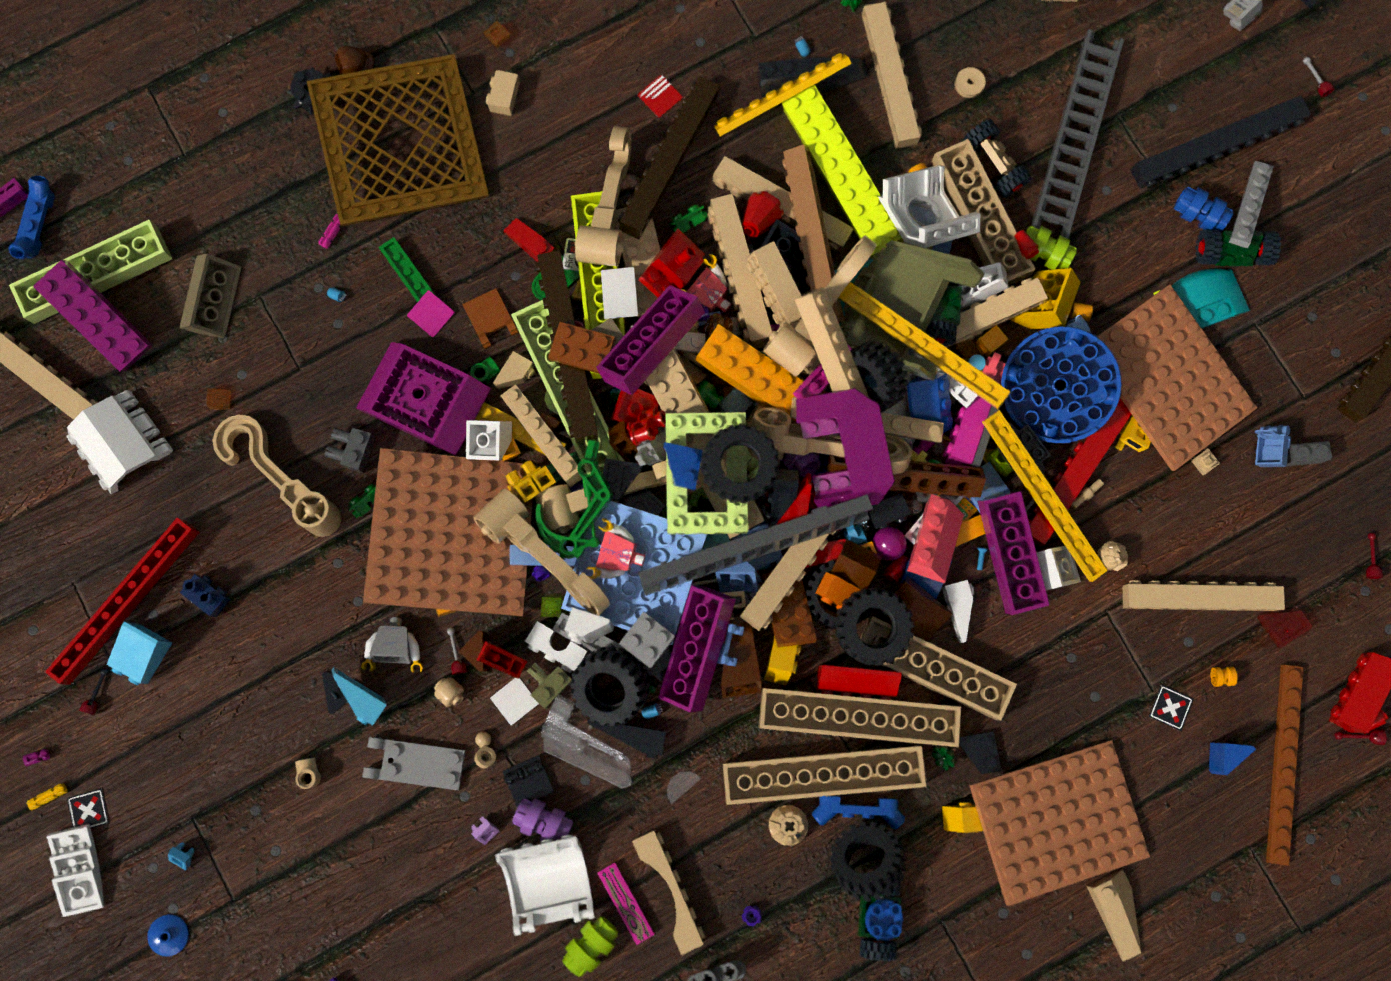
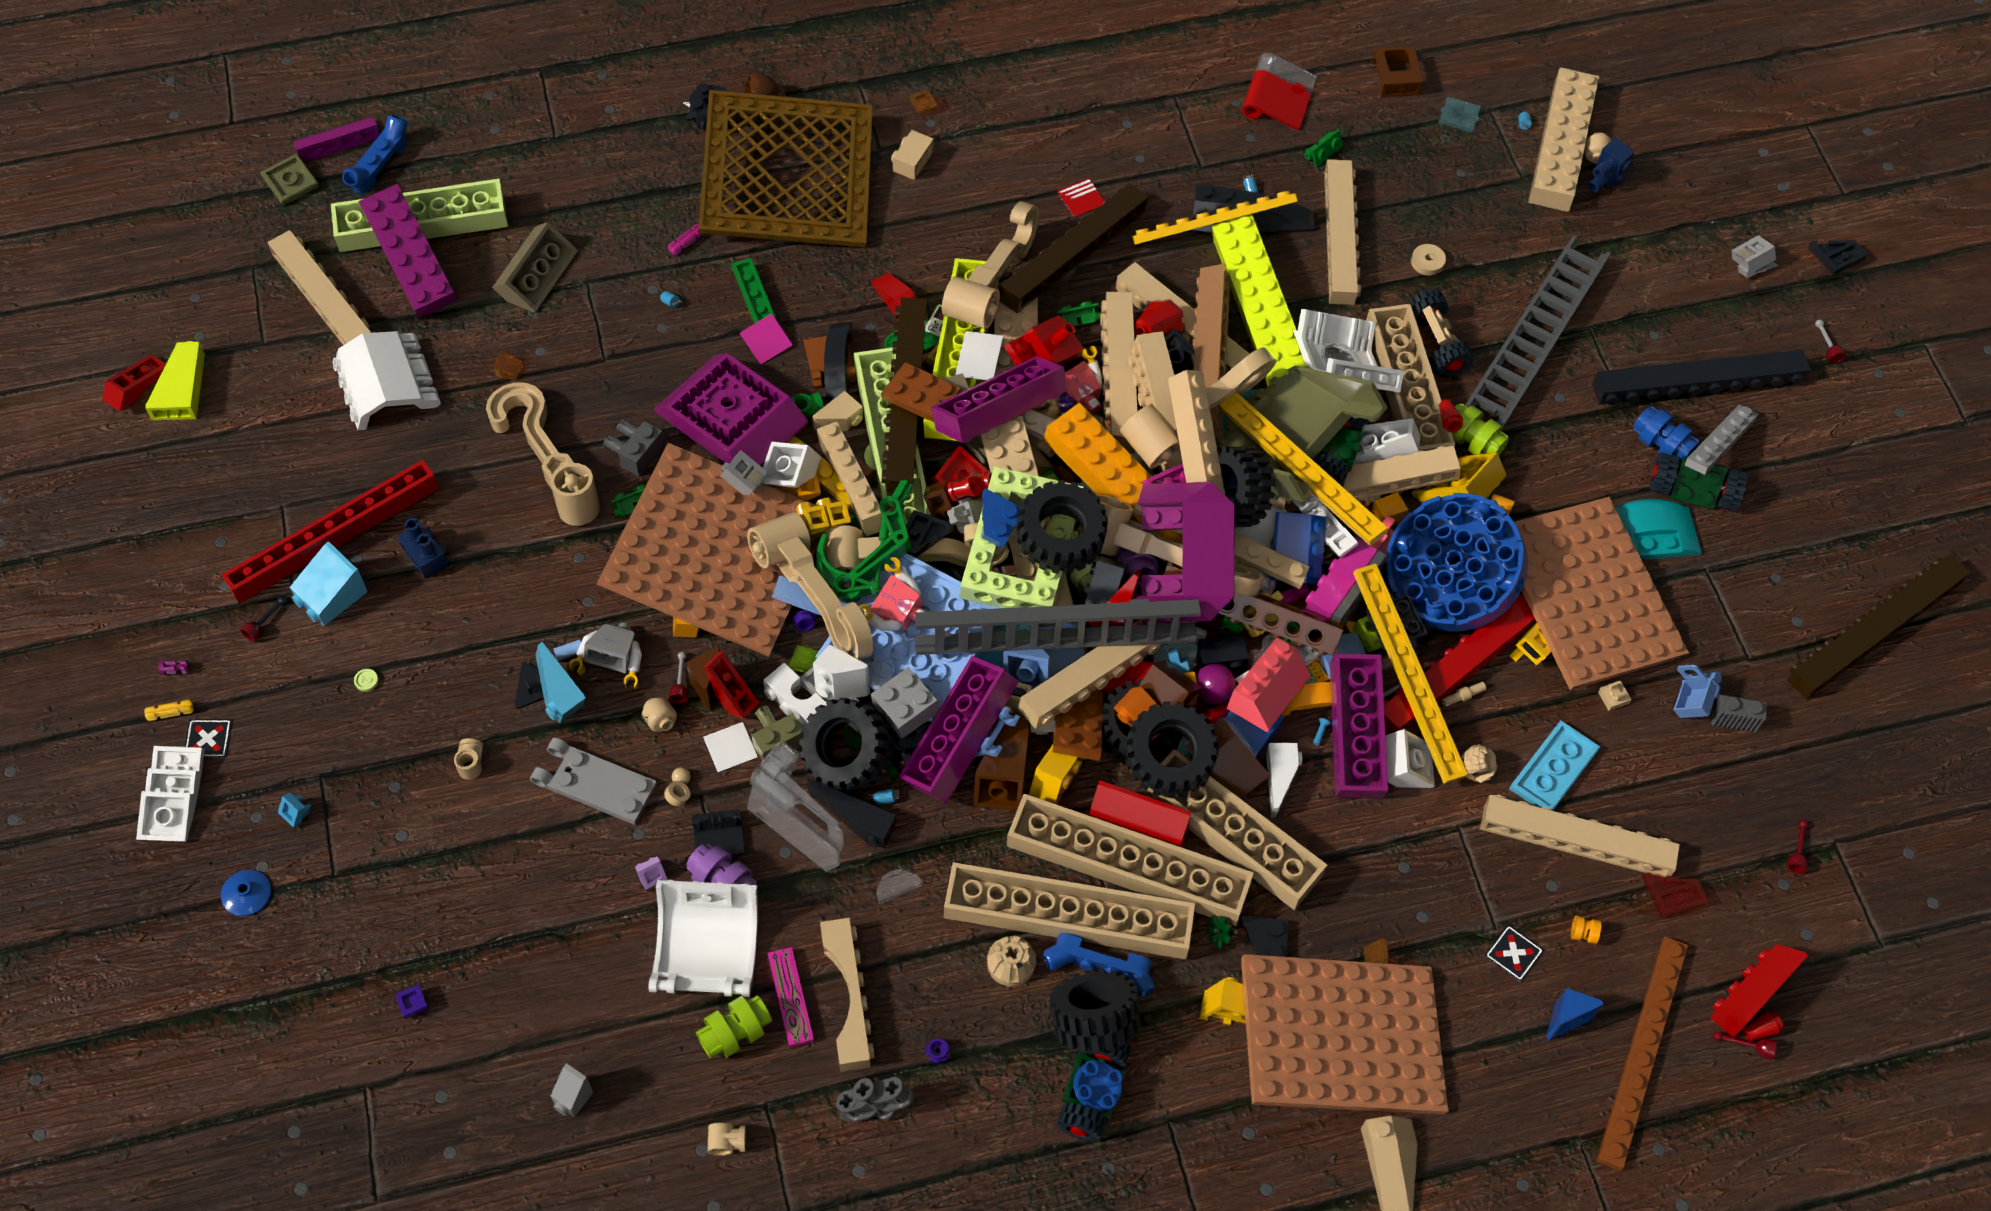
camera: 15 degrees right, 20 degrees down
(199, 723) = (366, 680): none -> yellowish green piece
(355, 653) = (567, 650): none -> light blue piece
(452, 462) = (743, 473): none -> light grey piece
(496, 319) = (836, 359): none -> black slope
(620, 617) = (878, 672): none -> clear tile
(1068, 742) = (1377, 952): none -> clear orange slope
(1171, 539) = (1554, 767): none -> medium azure tile

